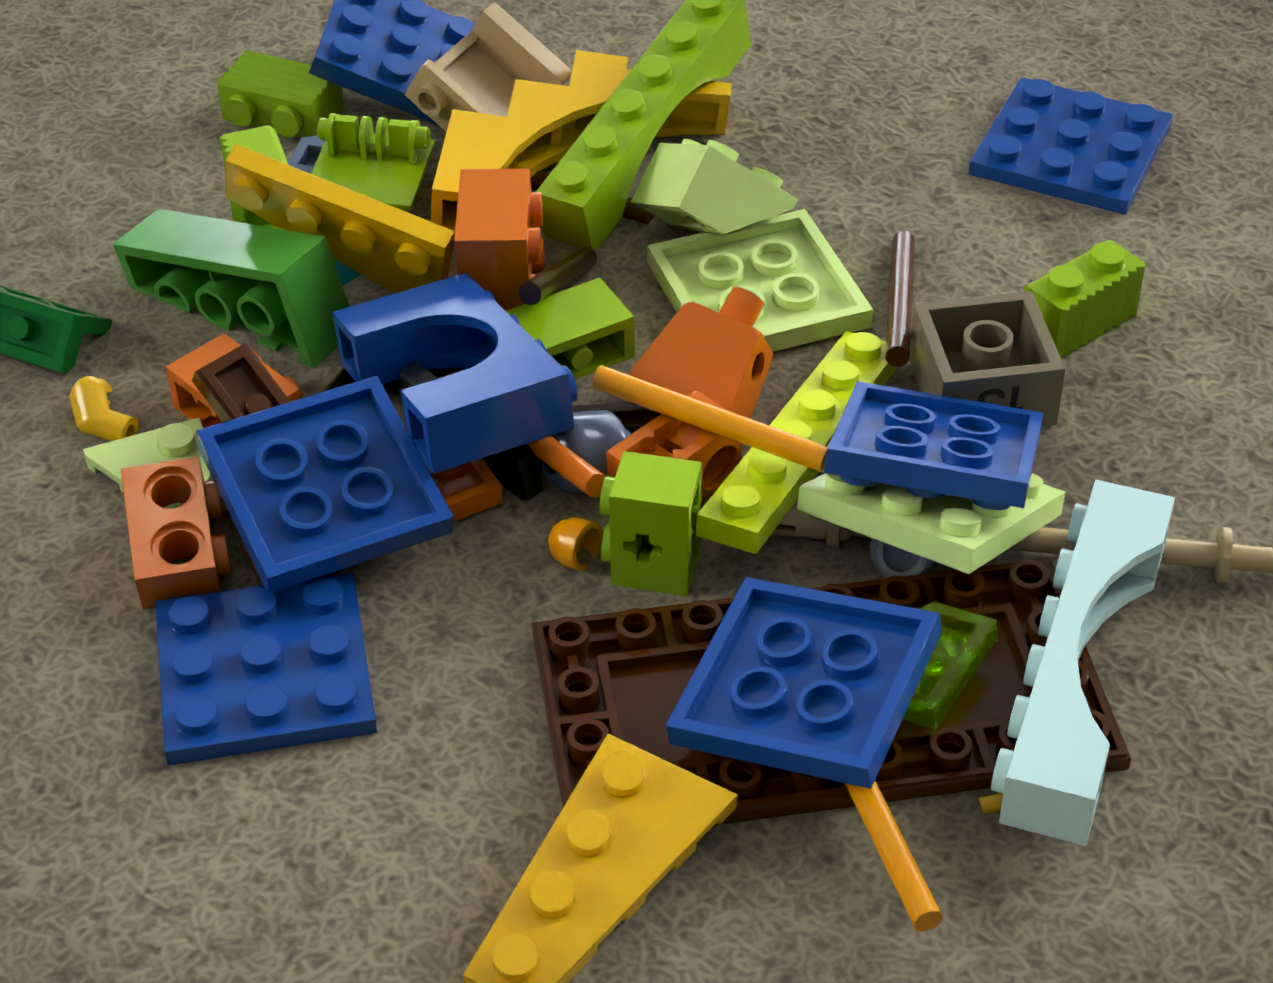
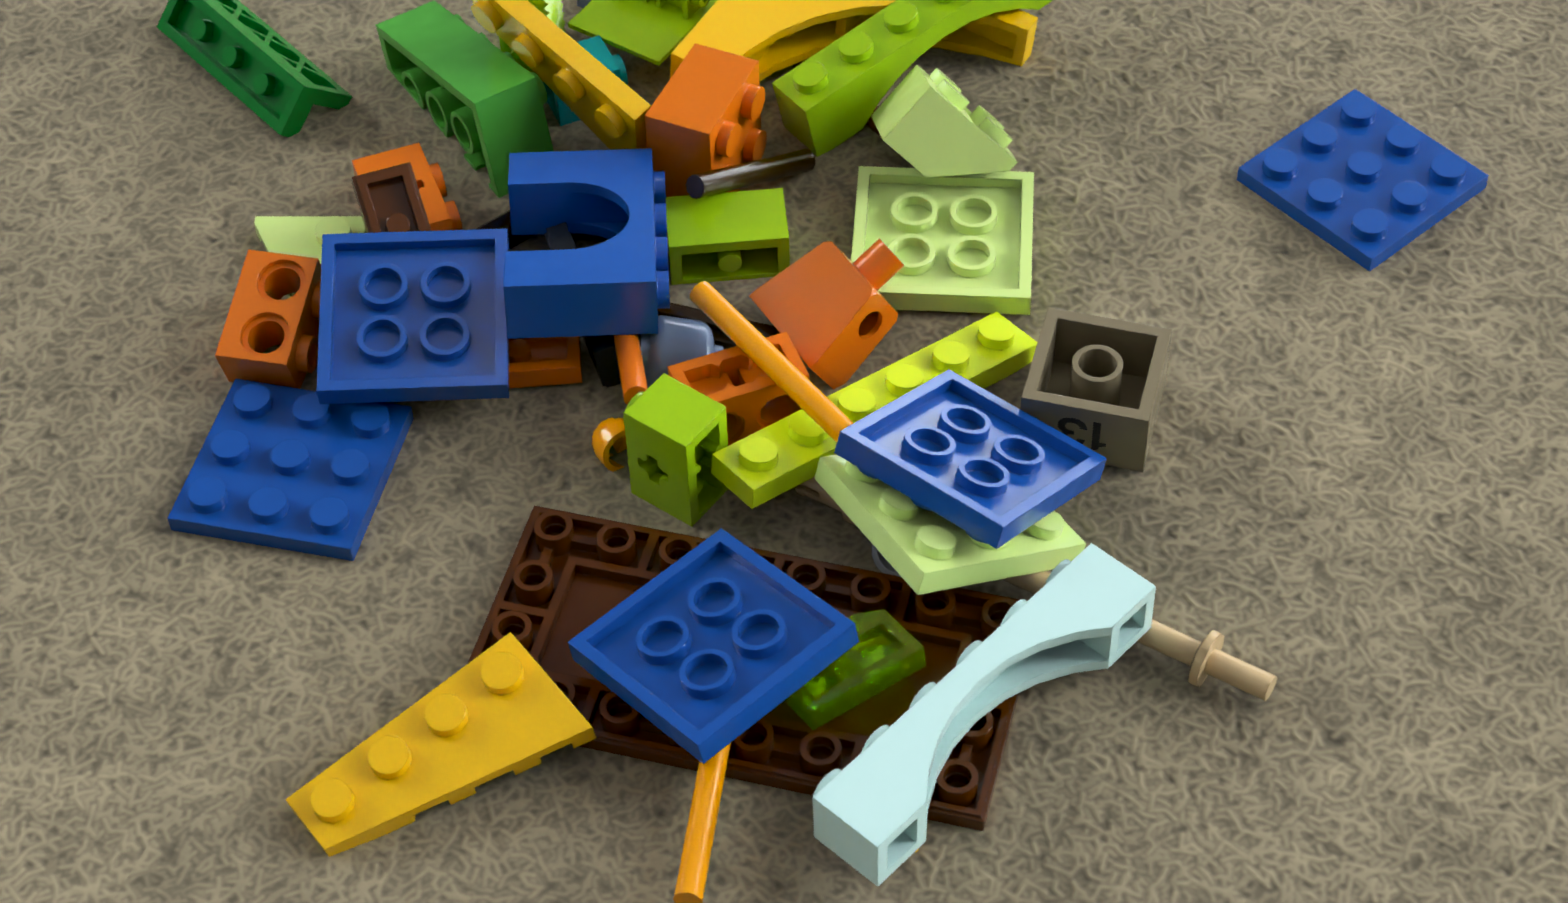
camera: 25 degrees right, 5 degrees up
(93, 412) = (285, 179): yellow arm -> none
(900, 299) = (1069, 291): reddish brown bar -> none
(1089, 294) = (1243, 350): lime brick -> none

